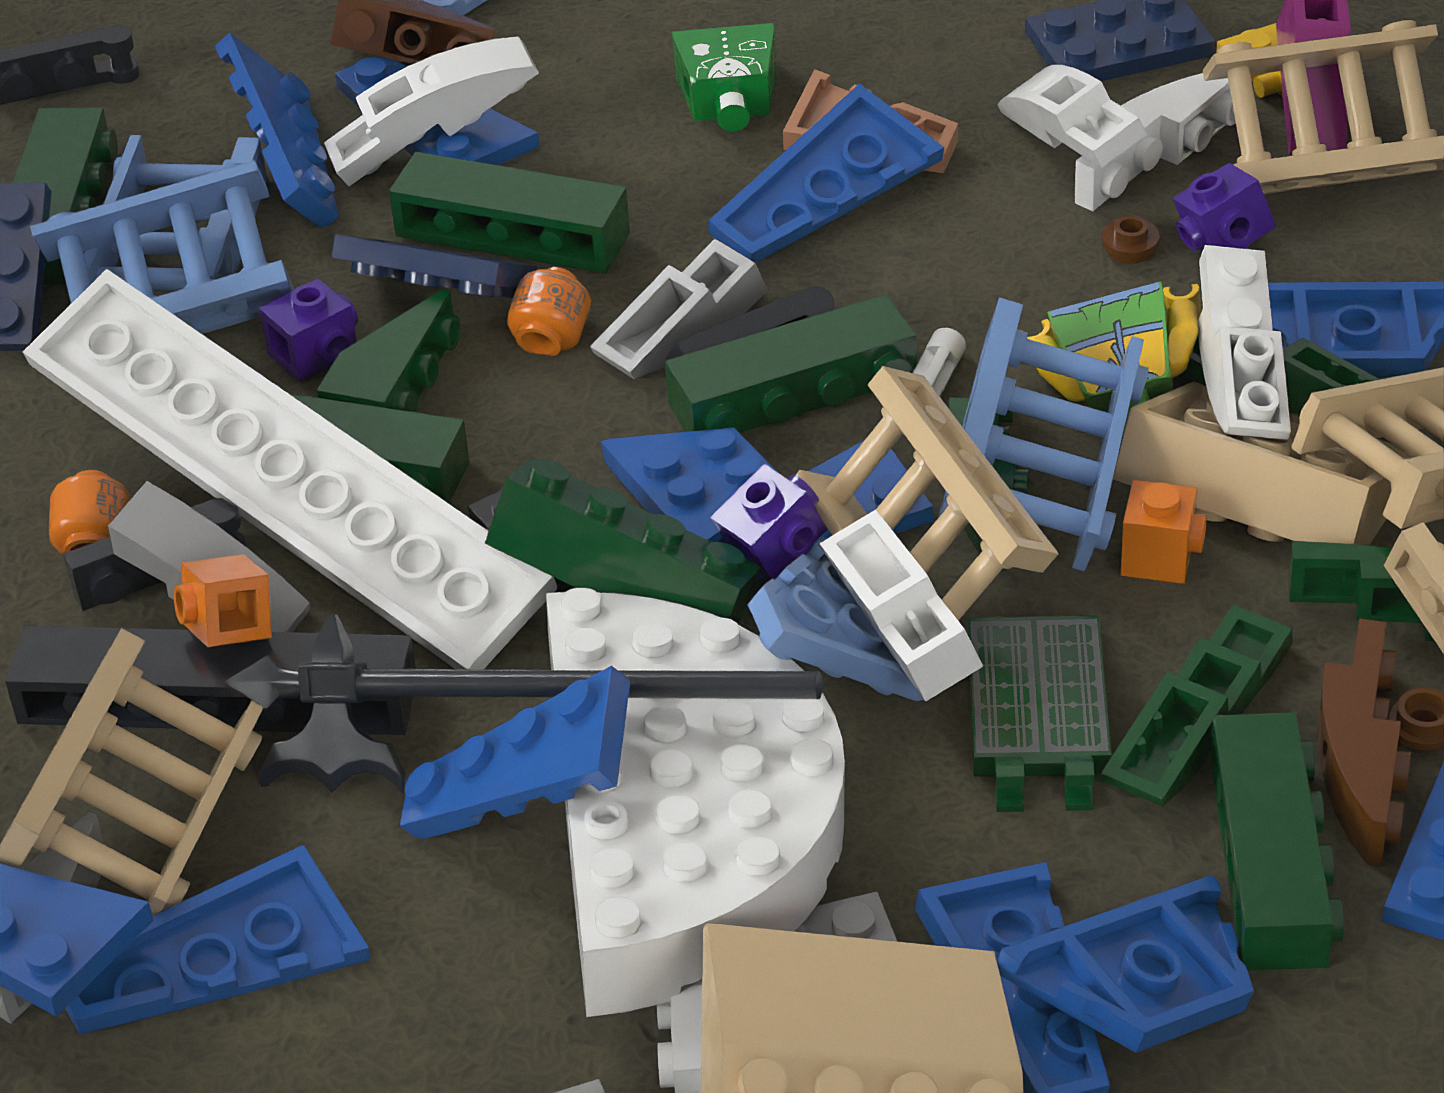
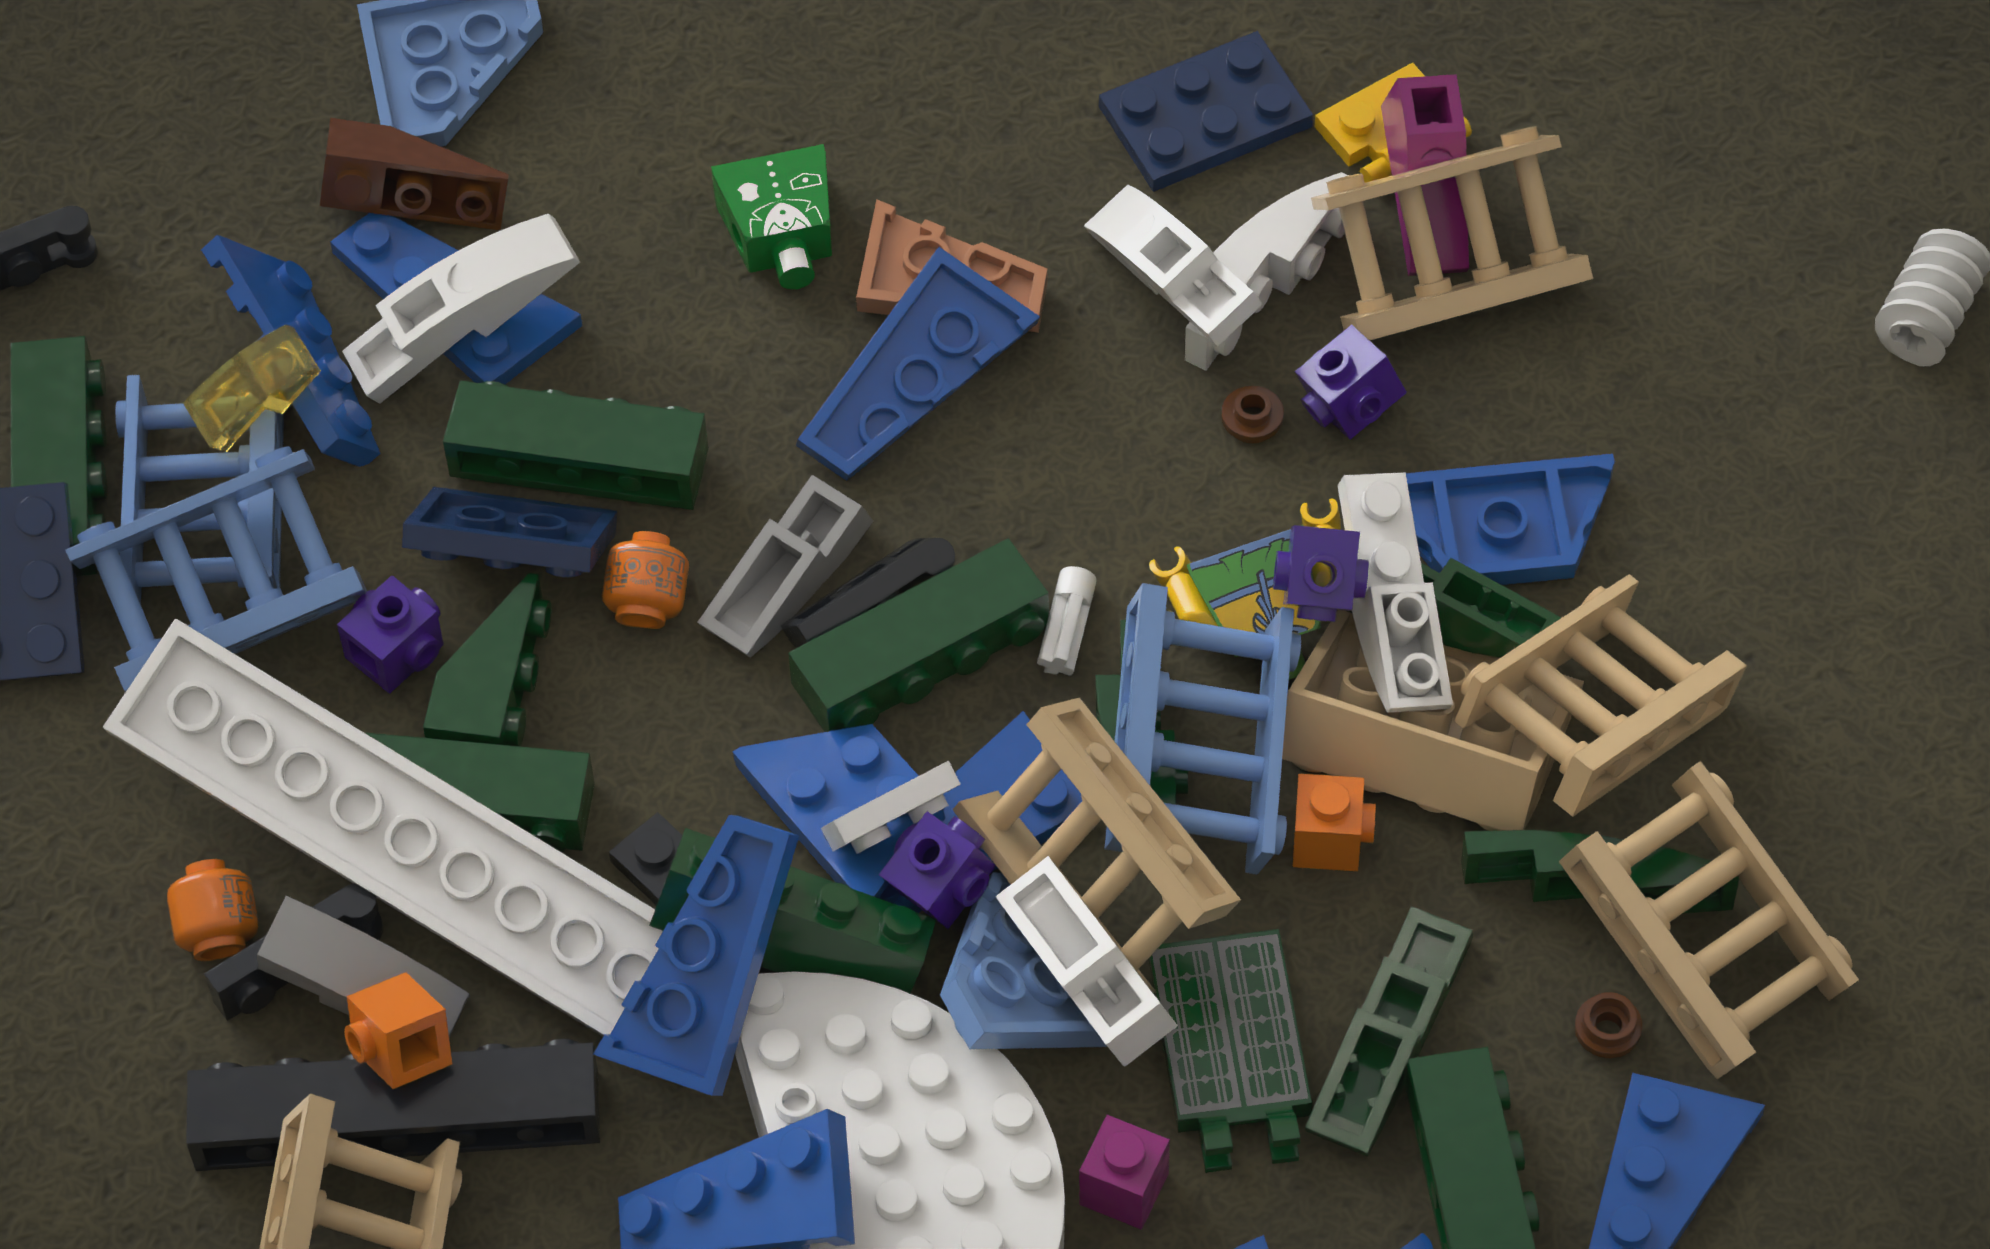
camera: 10 degrees left, 15 degrees up
(243, 132) = (256, 379): none -> clear yellow slope
(336, 747) = (544, 1182): black piece -> none
(530, 559) = (700, 983): none -> blue wing
(712, 473) = (868, 823): none -> white plate
(911, 791) = (1124, 1172): none -> magenta brick
(1173, 309) = (1339, 553): none -> dark purple brick
(1361, 745) = (1547, 1068): reddish brown slope -> none

